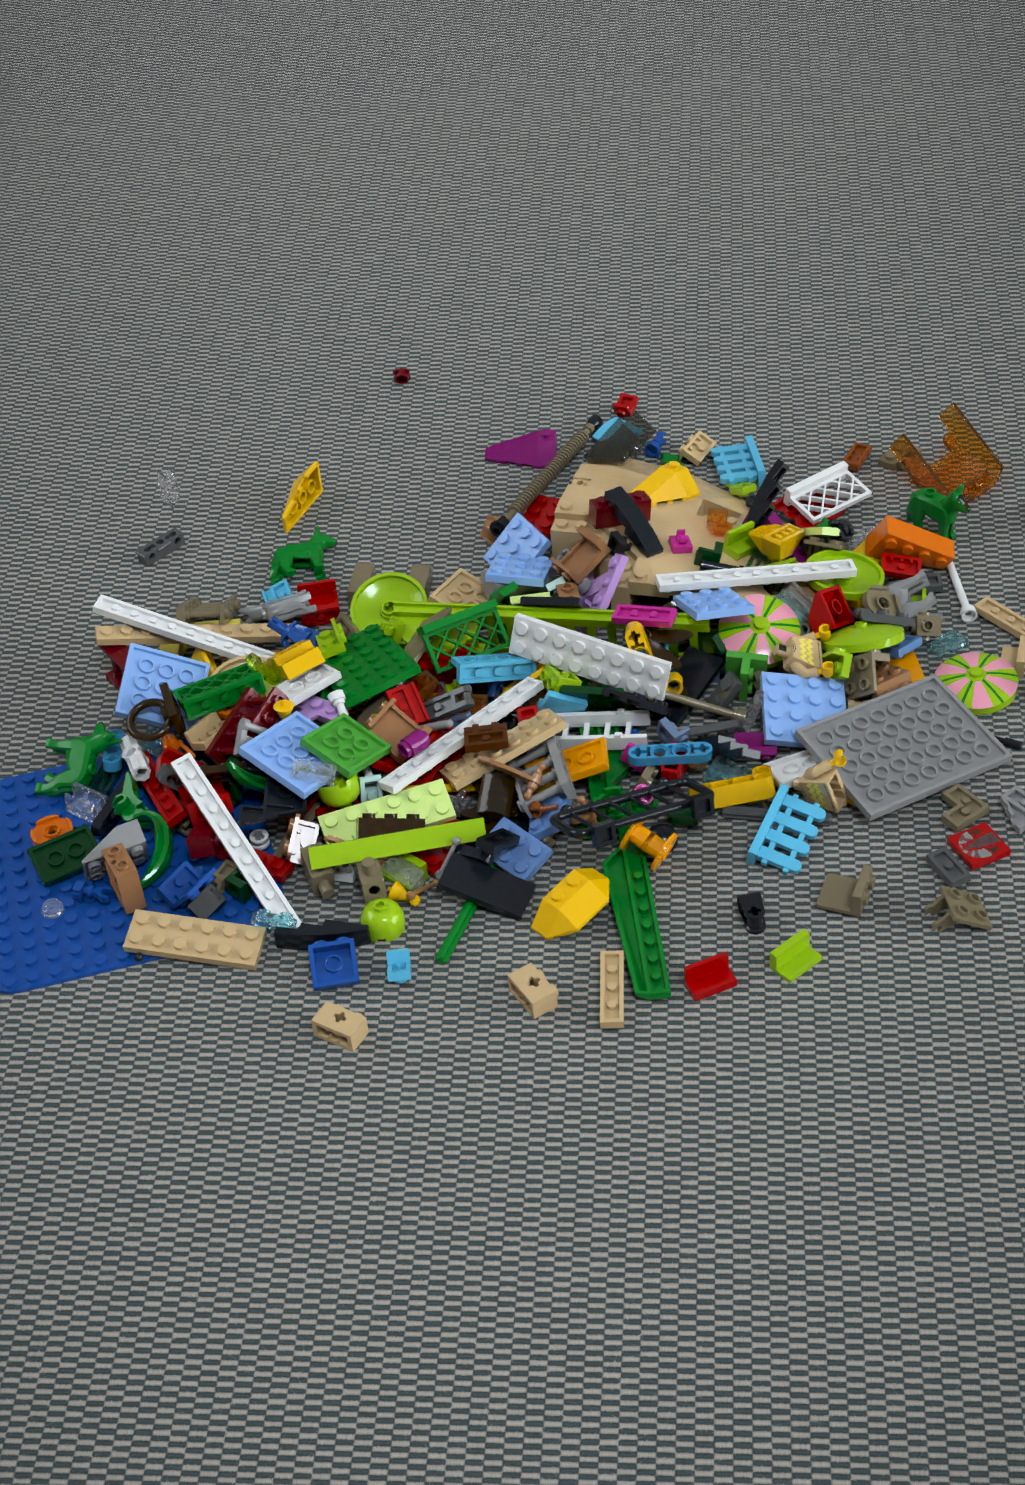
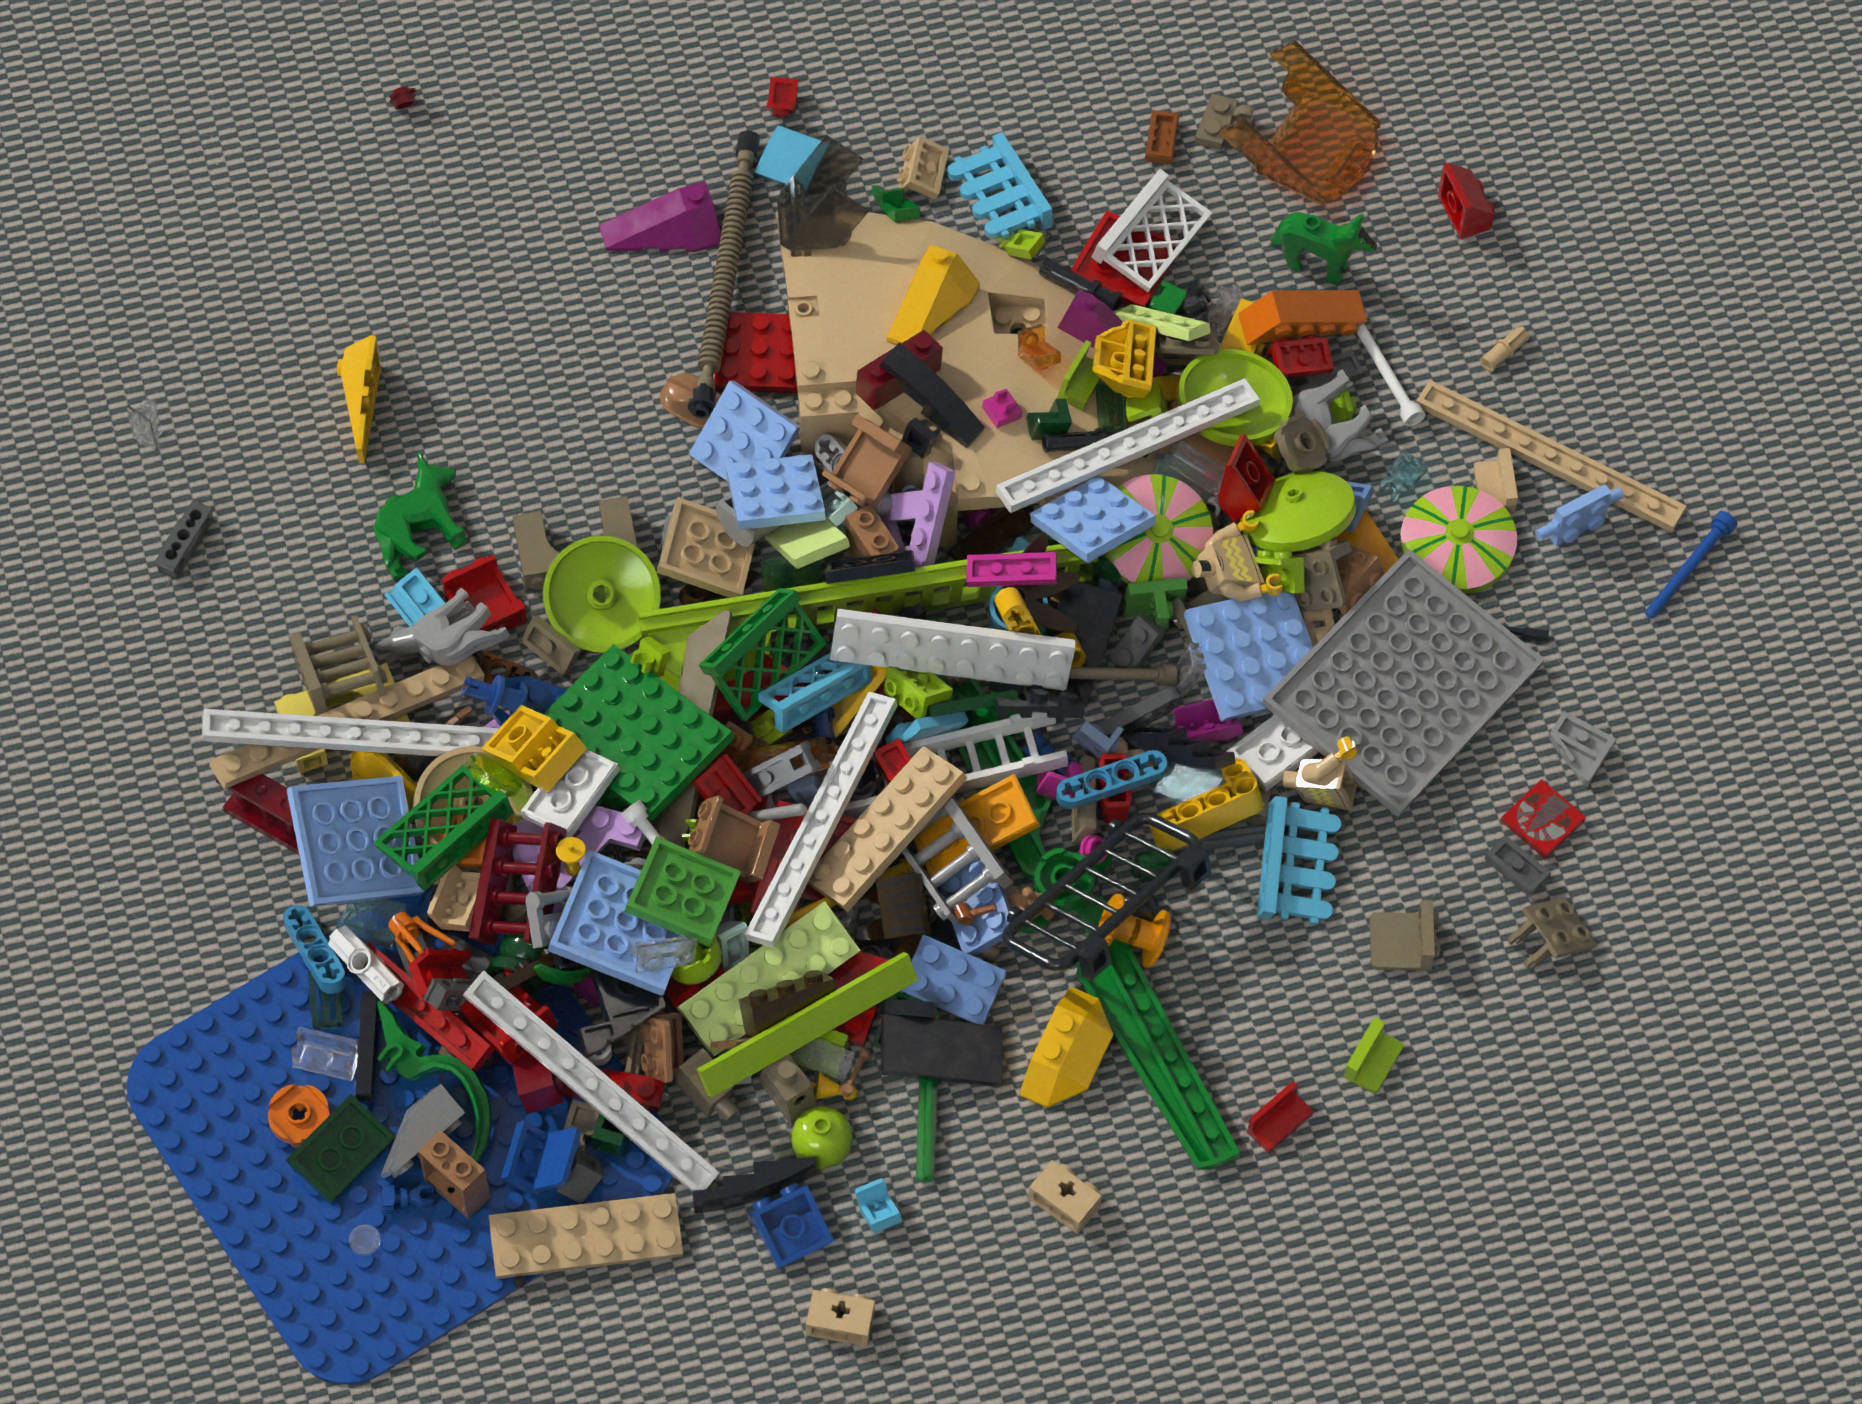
camera: 25 degrees left, 20 degrees up
(80, 760) = (285, 986): green animal -> none
(170, 711) = (395, 886): dark brown tile -> none
(266, 919) = (673, 1184): clear light blue plate -> none
(332, 641) = (566, 698): lime bracket -> none
(413, 743) = (769, 860): magenta brick -> none
(456, 841) = (868, 1043): light grey hinge -> none
(486, 737) = (869, 831): reddish brown plate -> none
(497, 841) = (938, 984): black plate -> none
(504, 592) = (770, 547): green slope -> none
(533, 780) = (951, 875): medium nougat piece -> none
(612, 989) = (1163, 1166): tan plate -> none
(653, 447) = (859, 179): blue piece -> none
(752, 912) = (1296, 999): black piece -> none
(769, 489) = (1093, 306): black slope -> none
(883, 617) = (1318, 471): dark grey plate -> none
(926, 626) = (1369, 463): dark tan brick -> none
(966, 808) = (1512, 759): dark tan plate -> none

